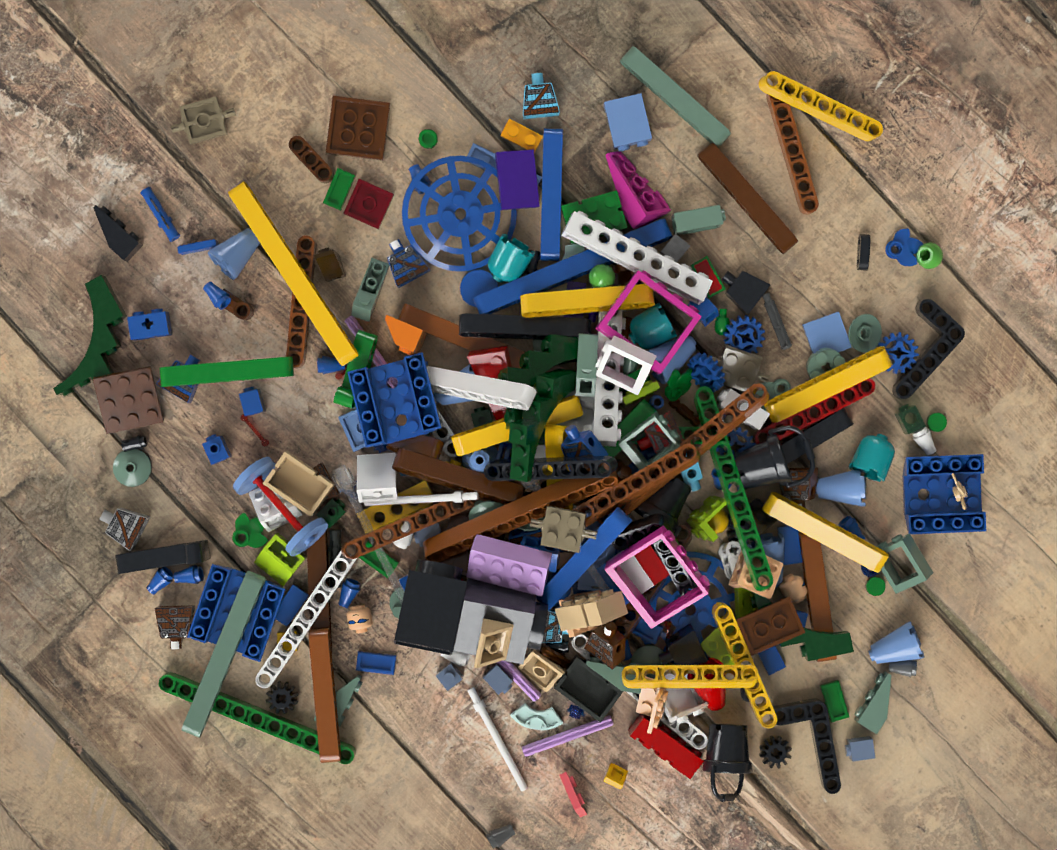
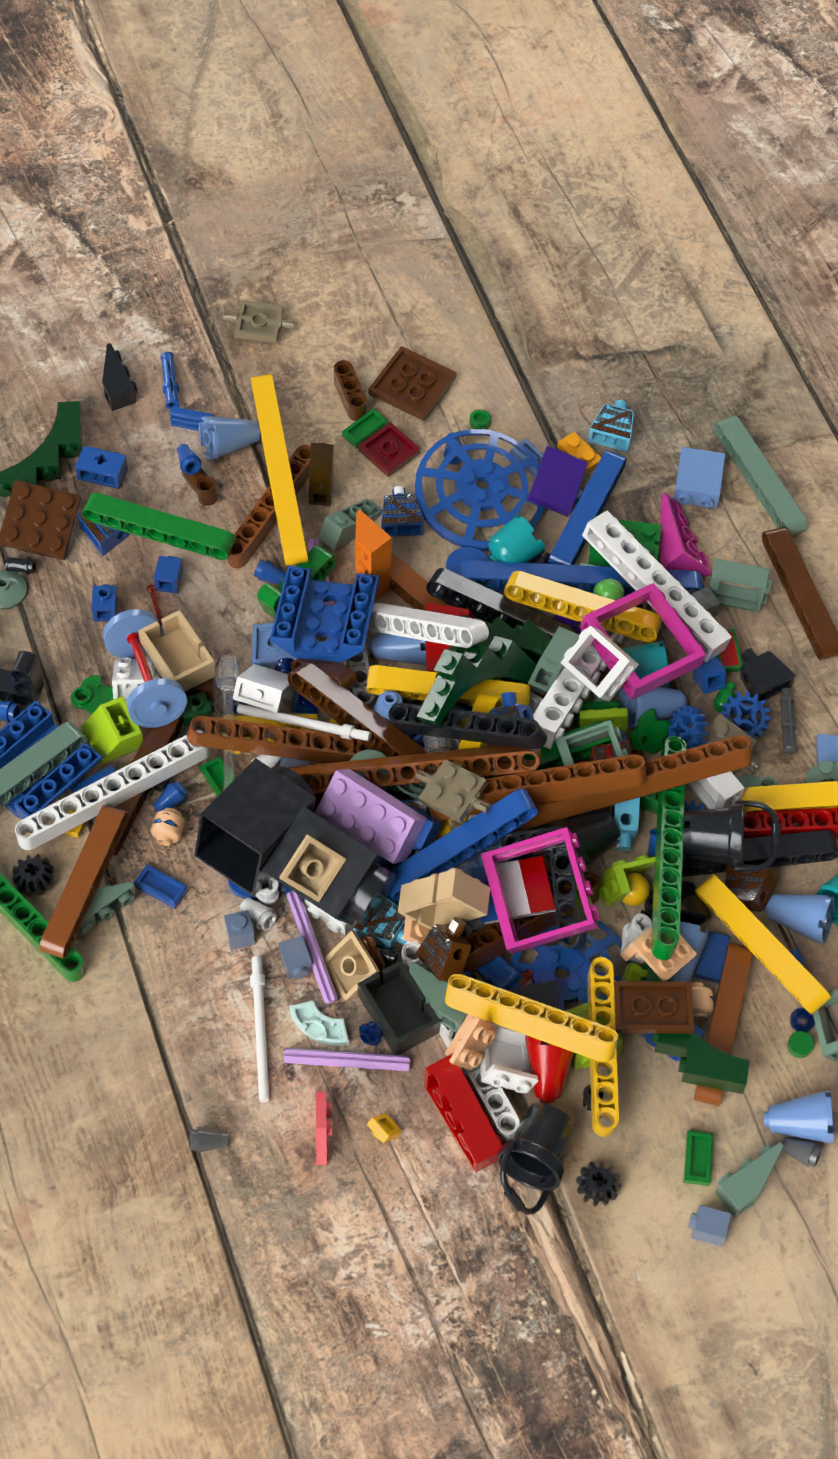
camera: 25 degrees right, 30 degrees down
(771, 660) = (636, 1068): blue tile -> none
(818, 737) = (662, 1188): black beam -> none

